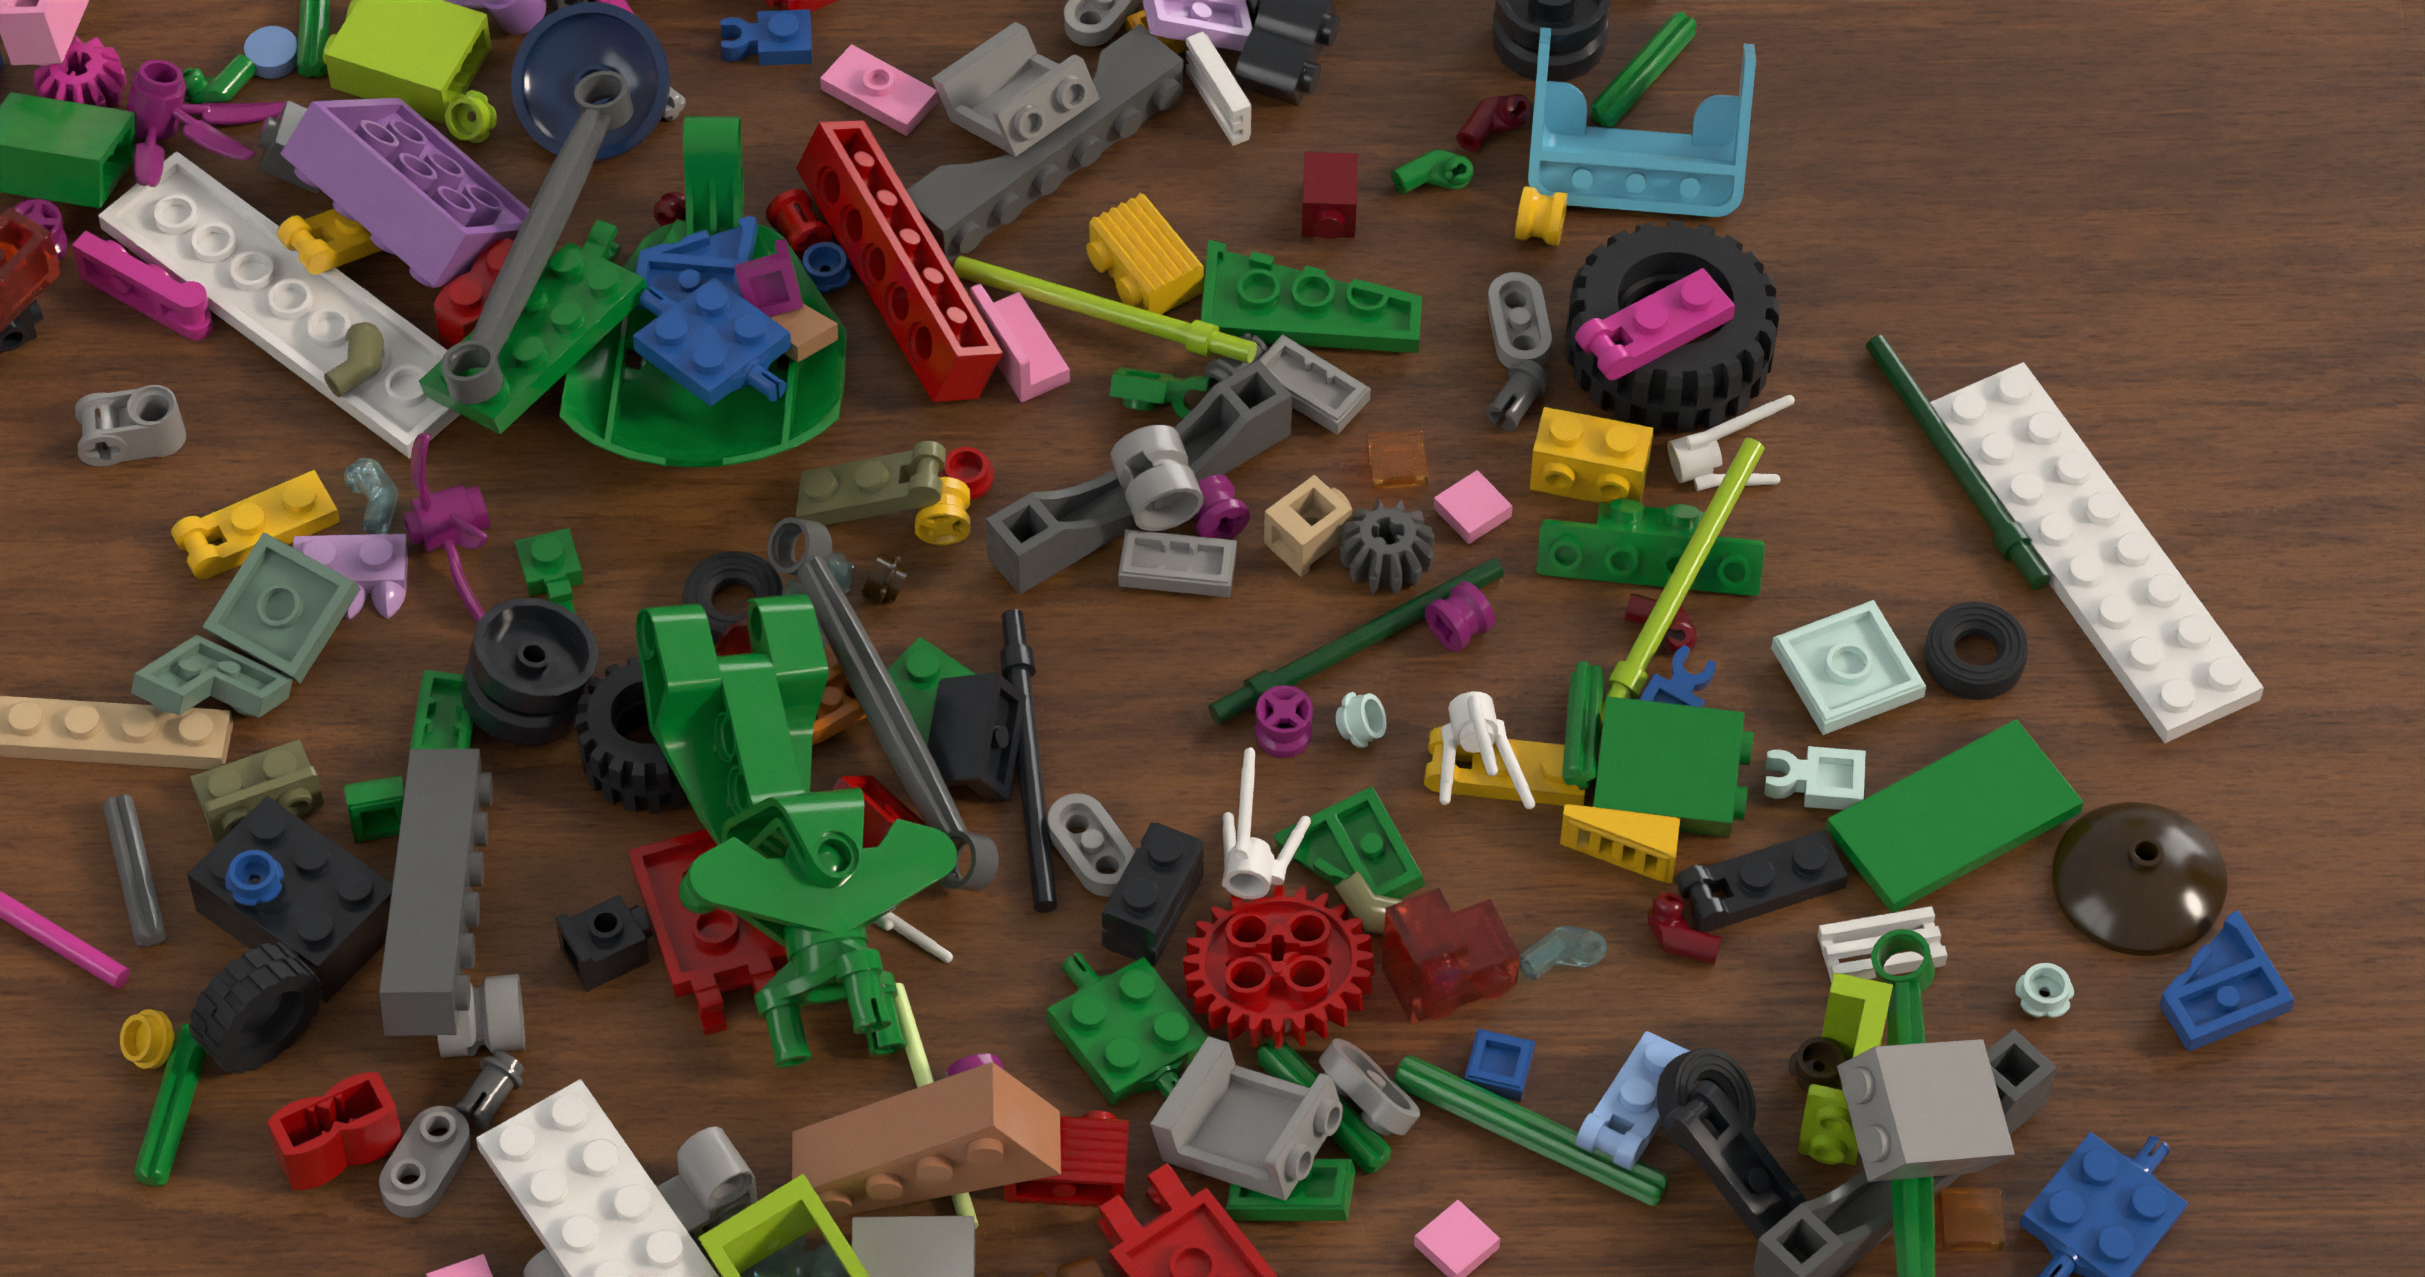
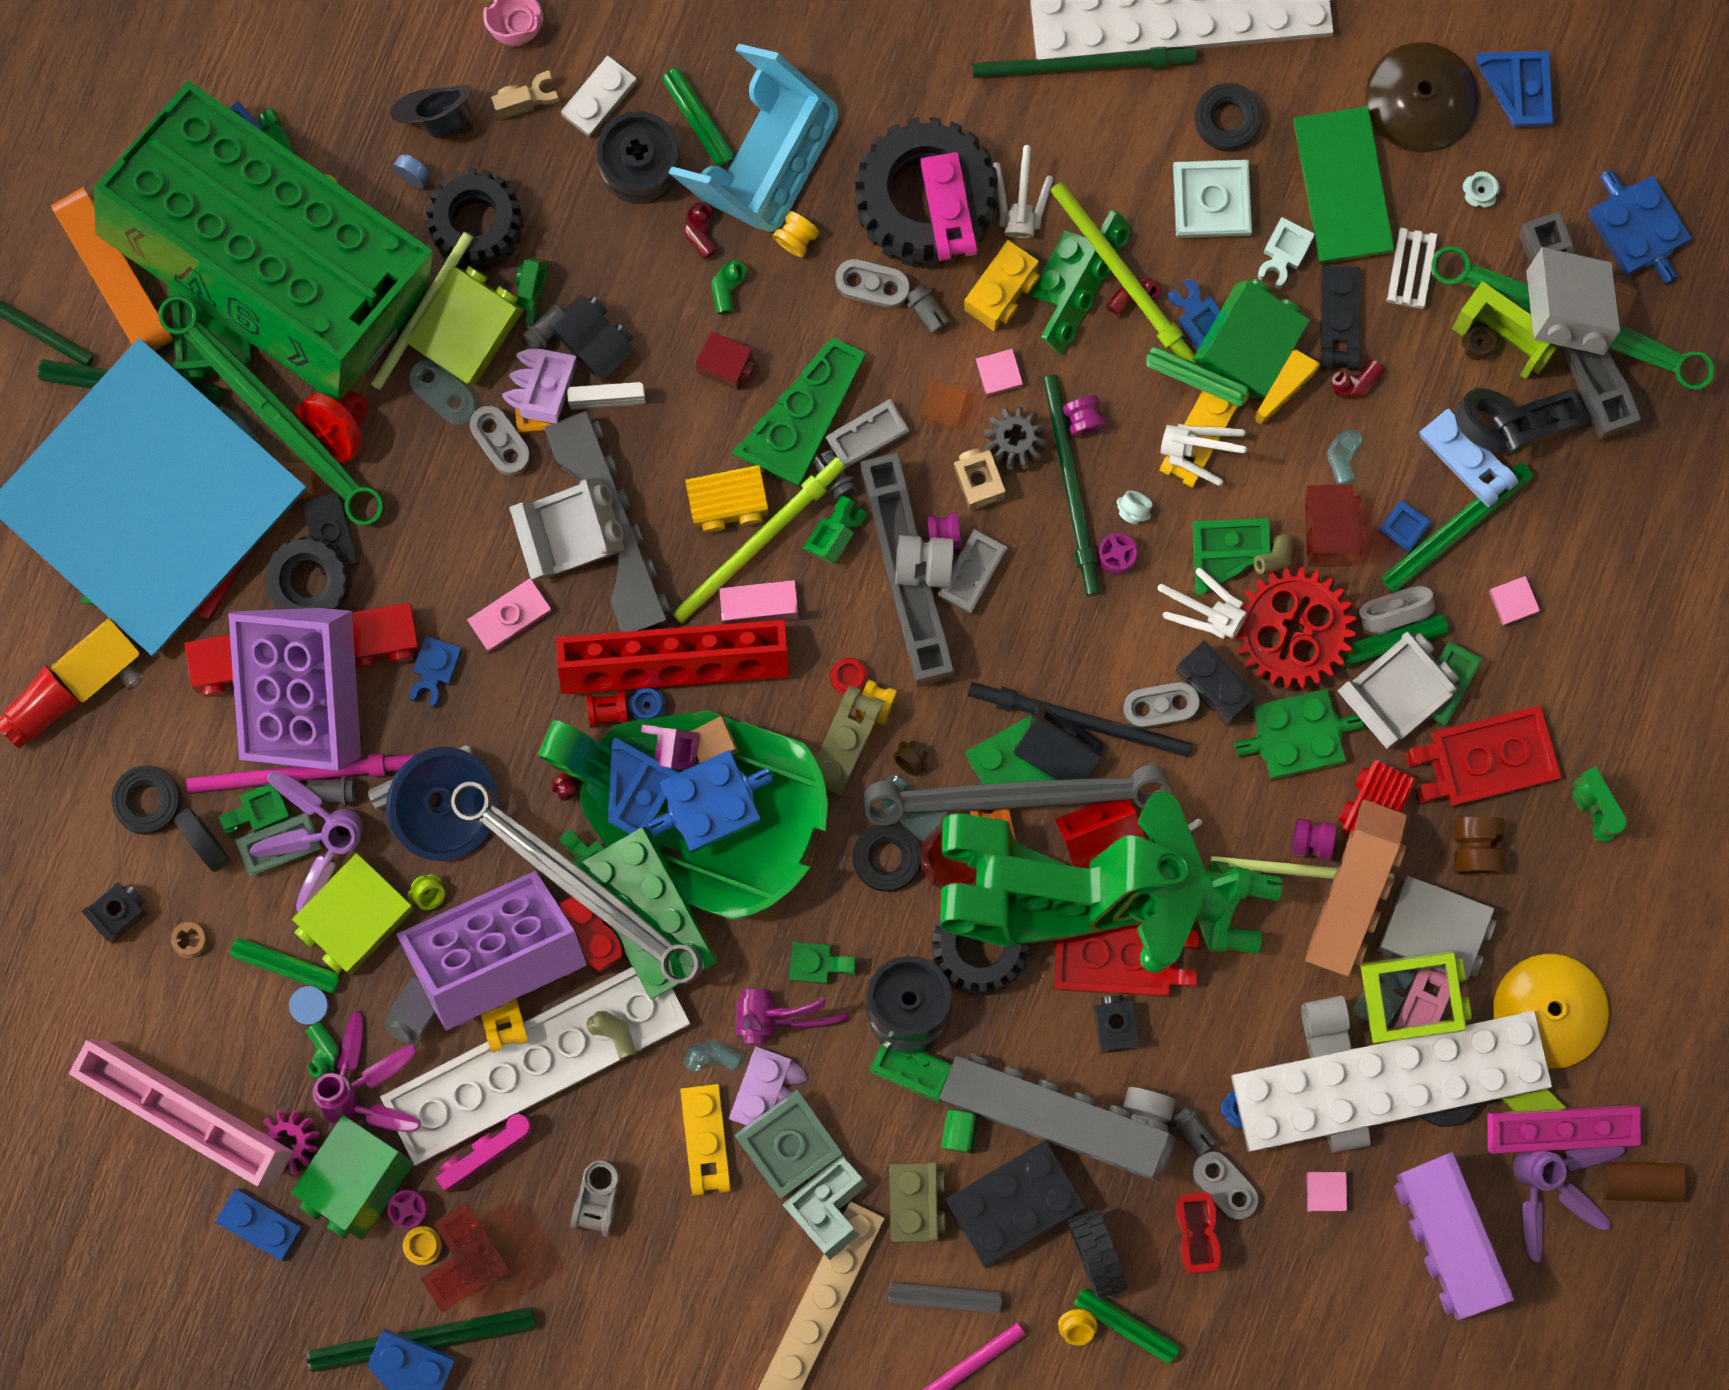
camera: 65 degrees left, 25 degrees up
(250, 866) = (1026, 1219): blue plate -> none

